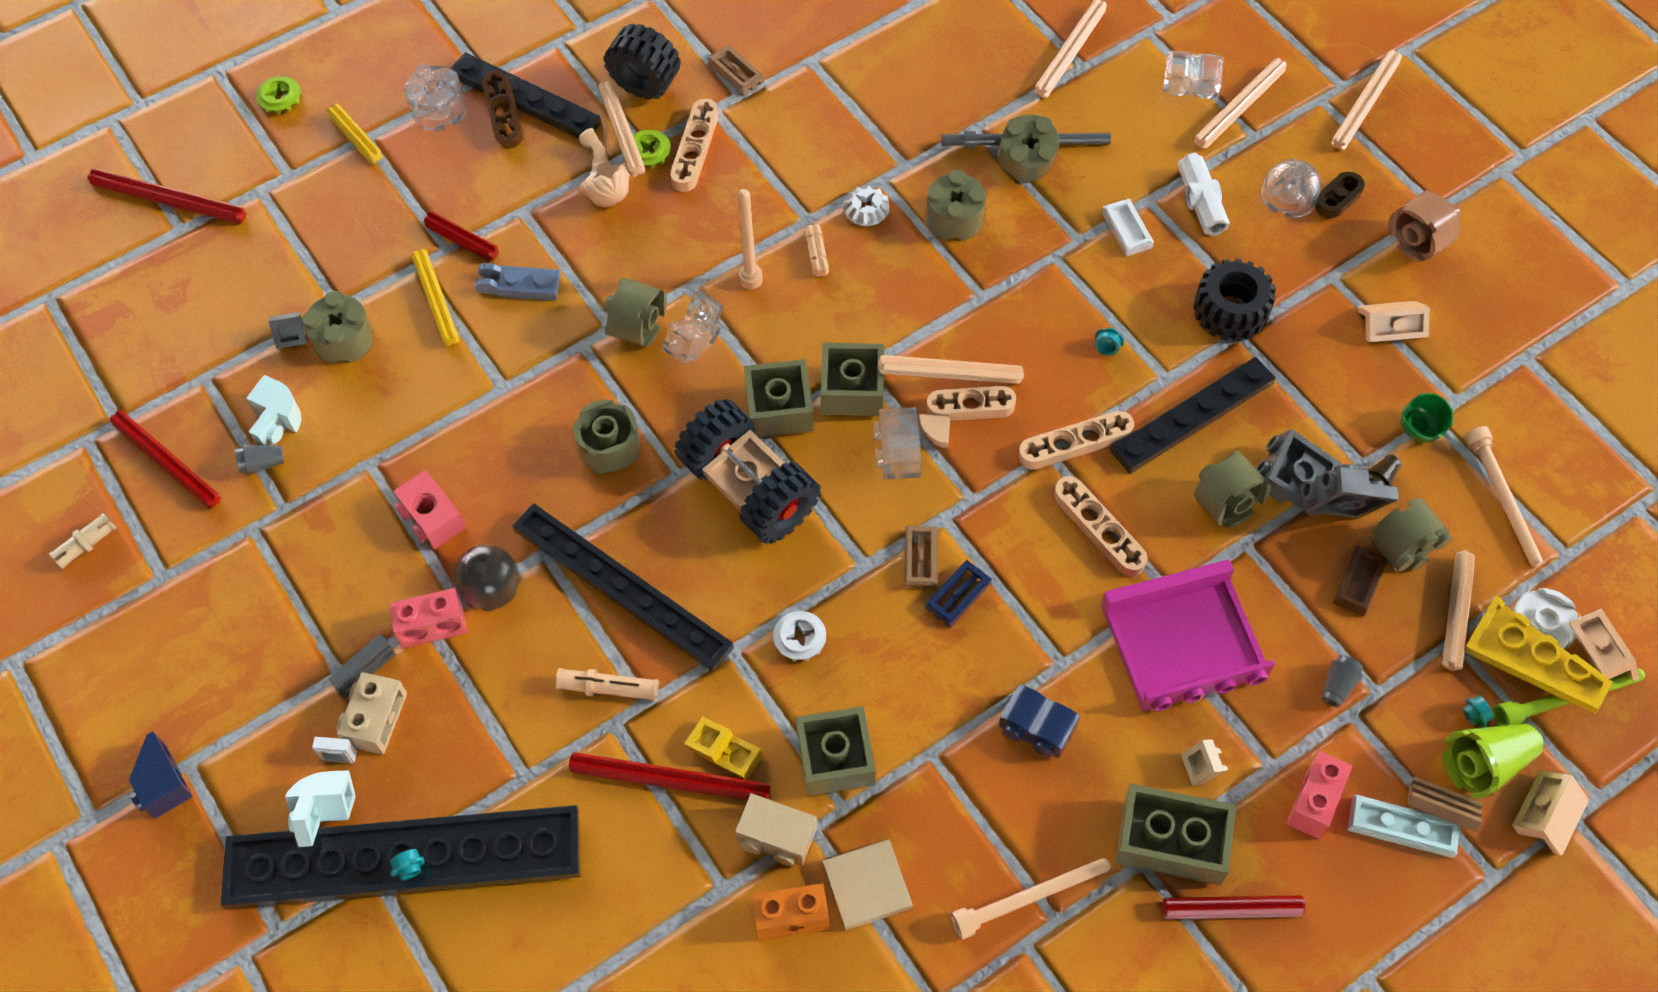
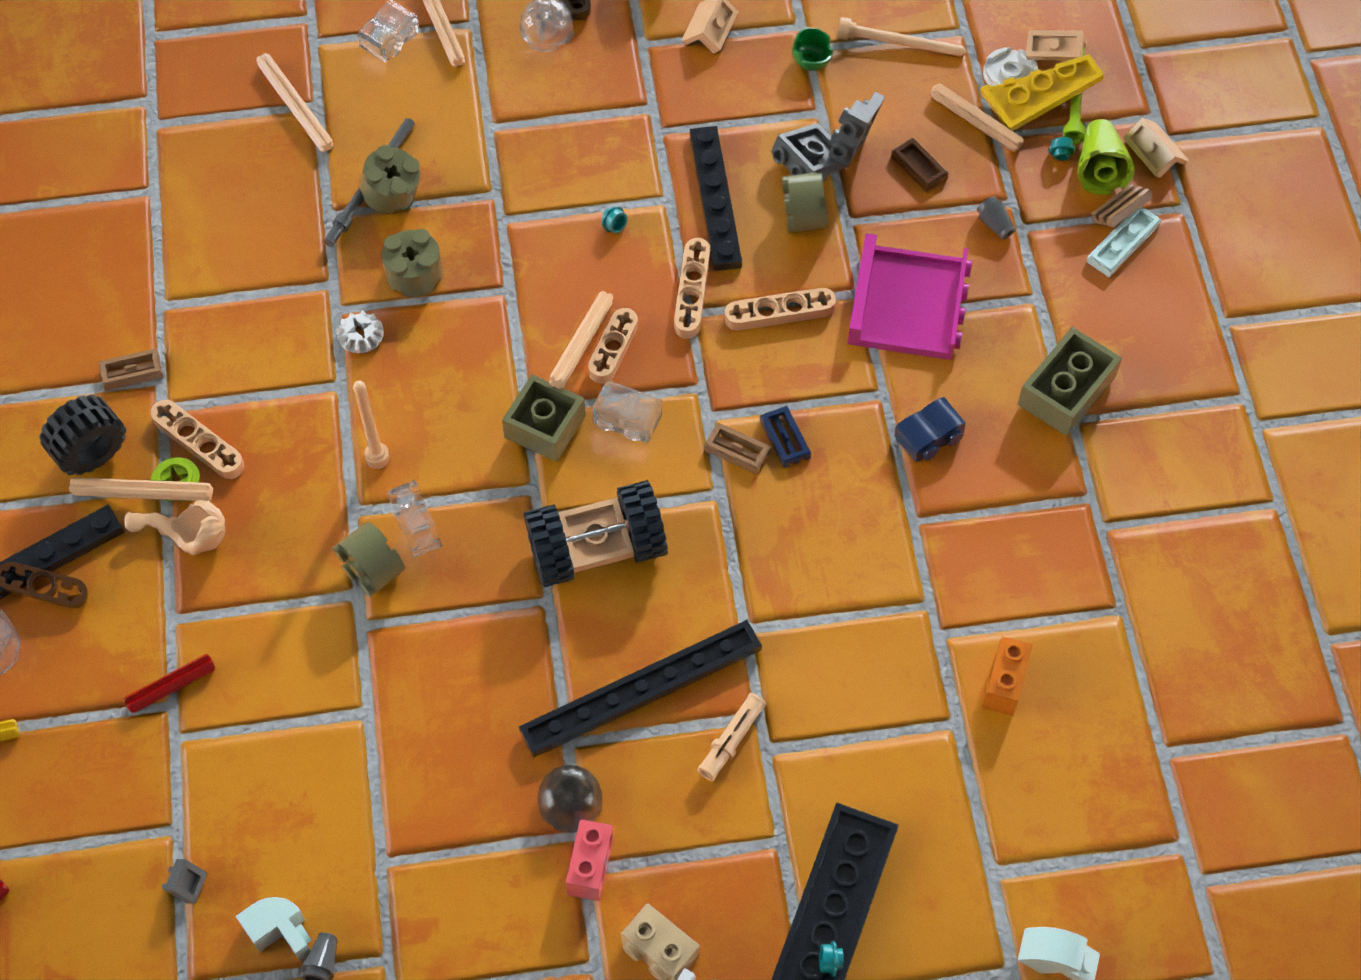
camera: 65 degrees left, 0 degrees up
(338, 328) = (213, 813): olive brick -> none
(367, 660) = (607, 937): dark grey tile -> none
(424, 494) = (457, 812): coral brick -> none
(435, 297) = (228, 732): yellow axle -> none
(518, 282) = (258, 650): sand blue hinge -> none
(607, 436) = (482, 651): olive brick -> none
(667, 777) = (841, 724): red axle -> none
(724, 749) = (837, 671): yellow slope -> none
(776, 830) = (934, 656): tan brick -> none
(779, 398) = (528, 479): olive brick -> none
(807, 624) = (754, 559): white gear -> none
(817, 250) = (387, 391): light nougat axle -> none
(835, 751) = (887, 582): olive brick -> none
(867, 884) = (1004, 611): tan tile -> none
(936, 428) = (626, 378): light nougat tile -> none
(968, 921) = (1069, 556): light nougat piece -> none
(1127, 227) = (508, 153): white tile -> none
(1203, 194) = (514, 85): white piece -> none
(1203, 762) = (1018, 337): tan tile -> none
(1233, 907) = (1136, 376): red axle -> none
(1239, 281) = (629, 97): black tyre -> none
(1319, 795) = (1080, 276): coral brick -> none
(1385, 470) = (839, 100): dark brown cone -> none
(1410, 535) = (908, 110): olive brick -> none

